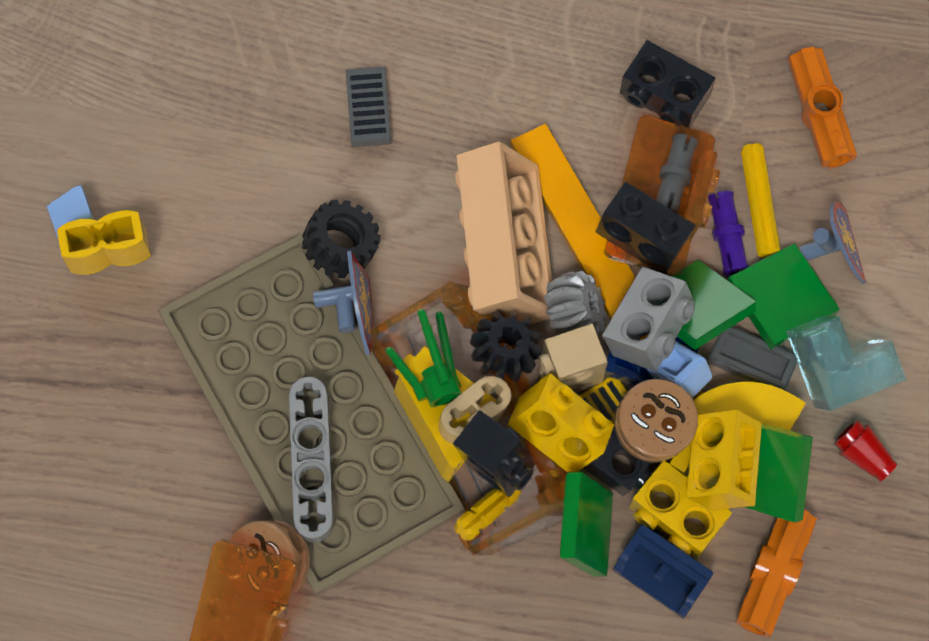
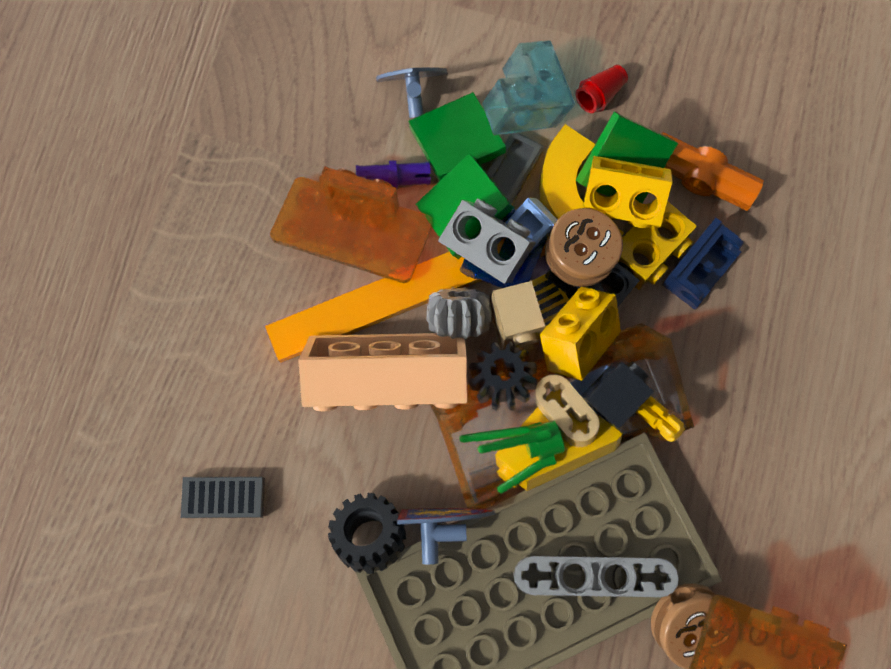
camera: 85 degrees left, 5 degrees up
(586, 524) = (671, 322): green tile -> none
(644, 228) = (392, 238): black brick -> none
(673, 78) = (234, 206): black brick -> none
(676, 172) = (337, 209): dark grey pin -> none
(760, 200) = (363, 145): yellow axle -> none
(827, 127) = (259, 83): orange piece -> none

